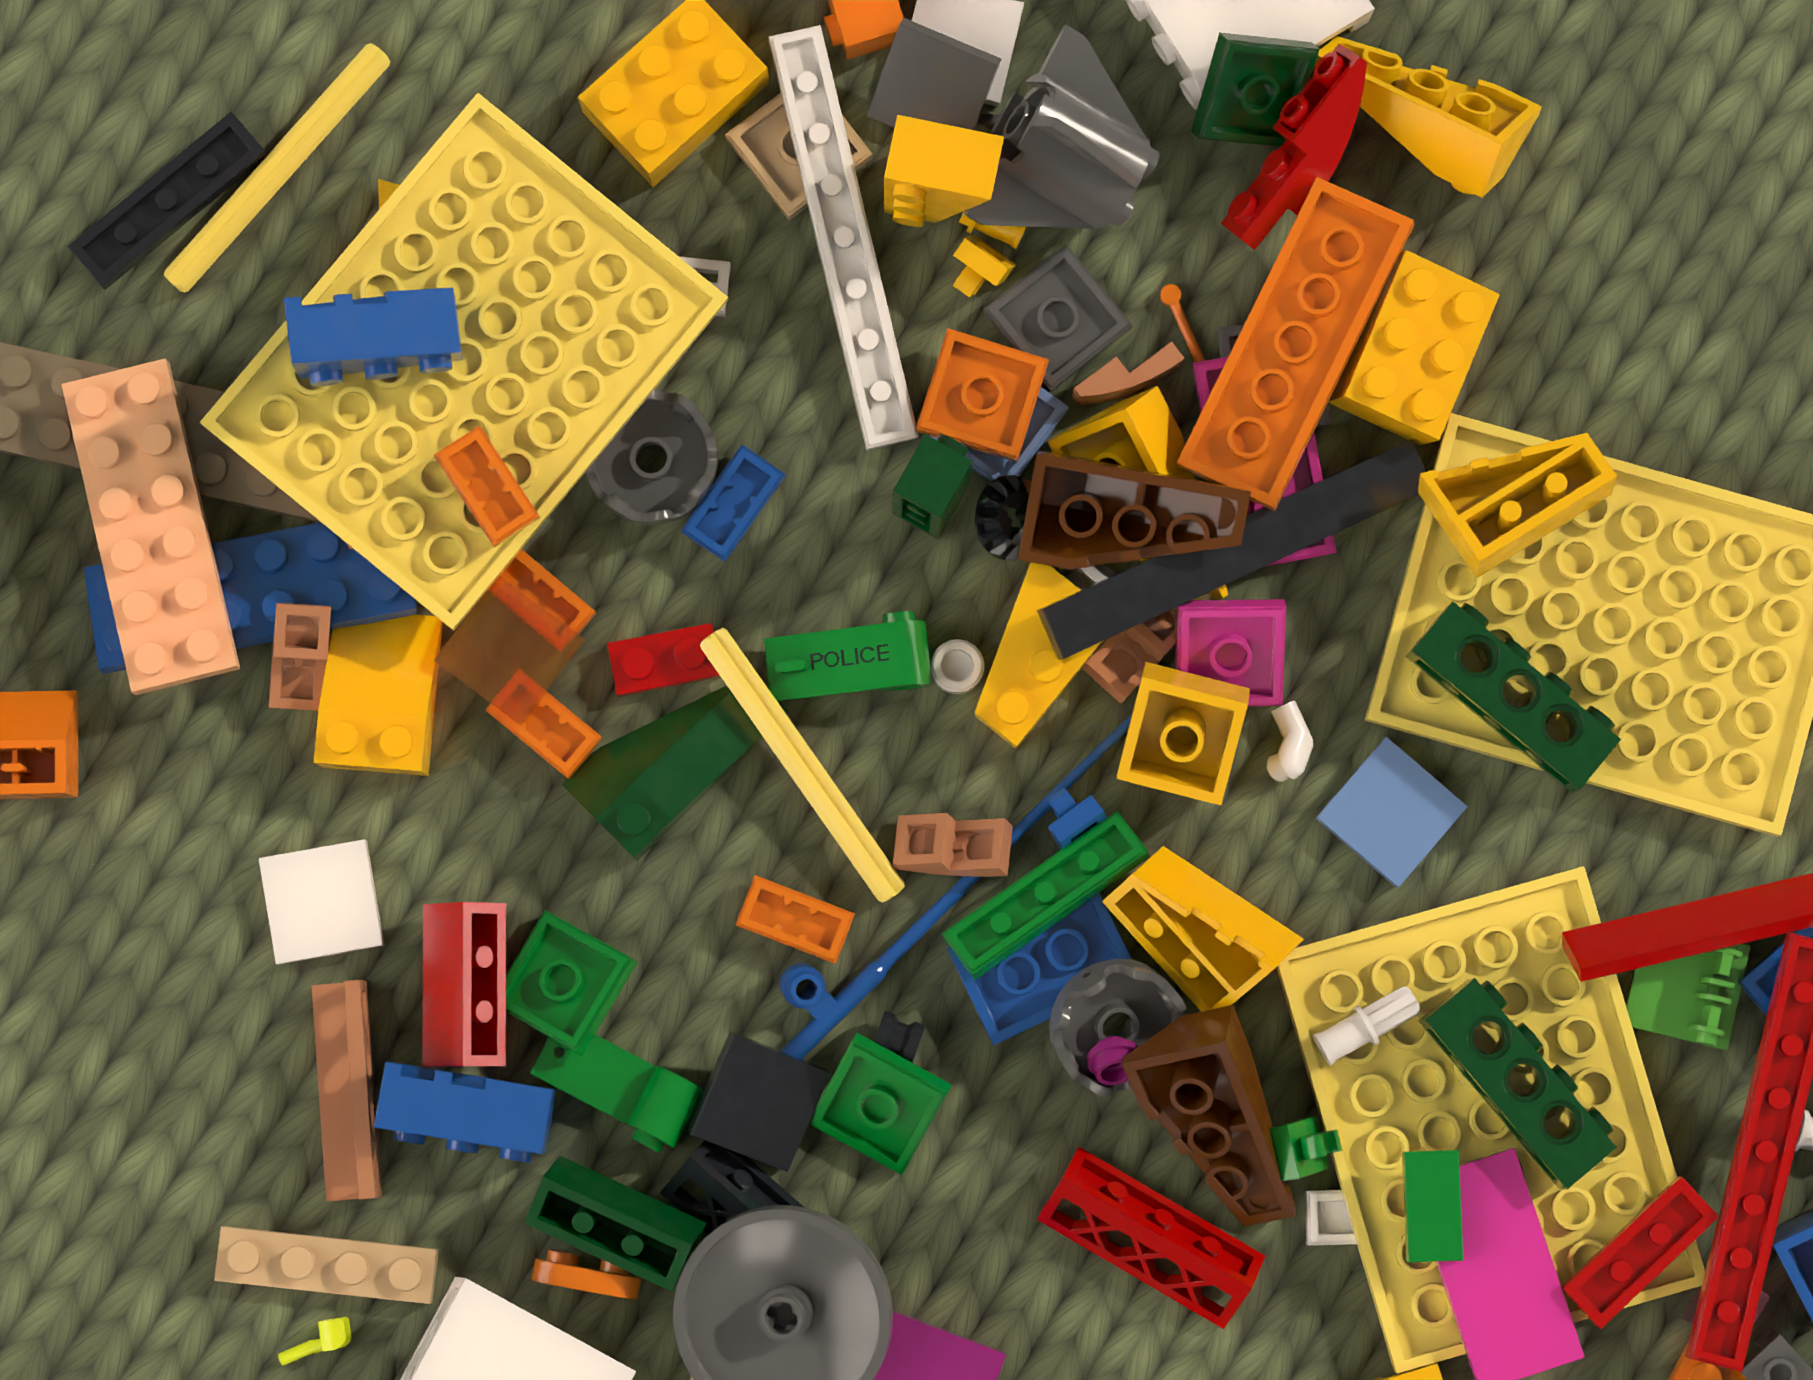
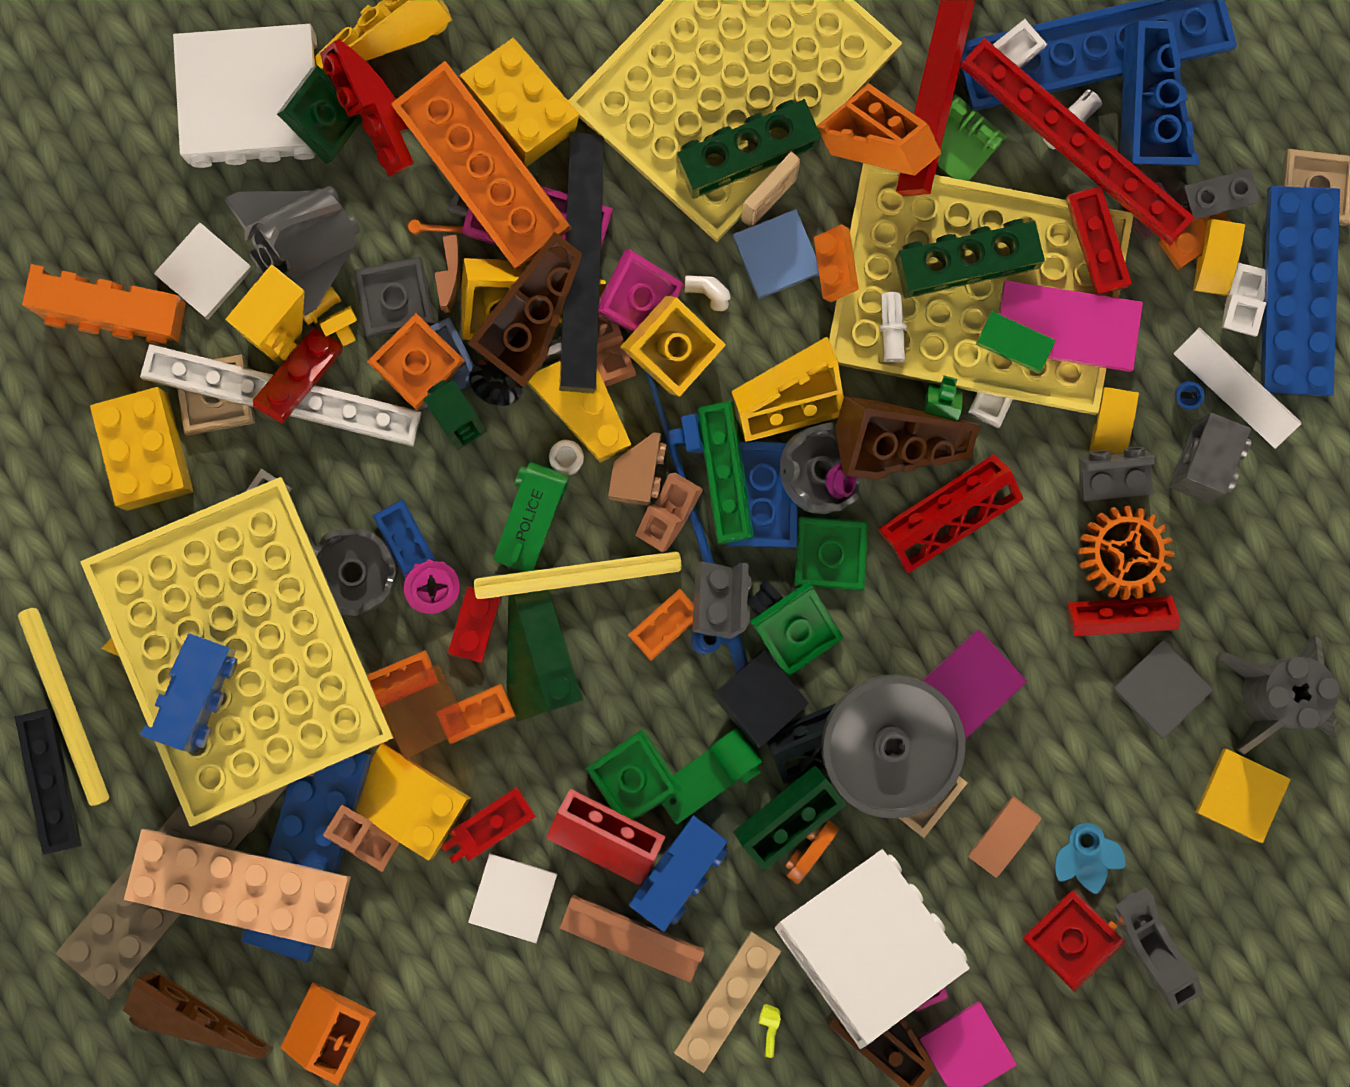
camera: 60 degrees left, 0 degrees up
(402, 821) = (490, 826): none -> red hinge
(487, 486) = (318, 673): orange plate -> none
(684, 597) = (444, 594): none -> dark pink gear
(866, 978) = (721, 599): none -> dark grey bracket
(880, 245) = (297, 375): none -> red plate
(933, 79) = (214, 294): dark grey tile -> none
(983, 771) = (634, 472): none -> medium nougat slope
(1010, 1098) = (831, 553): none -> green tile
(1418, 900) = (836, 263): none -> orange plate
(1471, 758) = (770, 190): none -> tan tile
(1517, 498) = (636, 90): yellow wedge -> none
(1628, 867) = (879, 133): none -> orange wedge

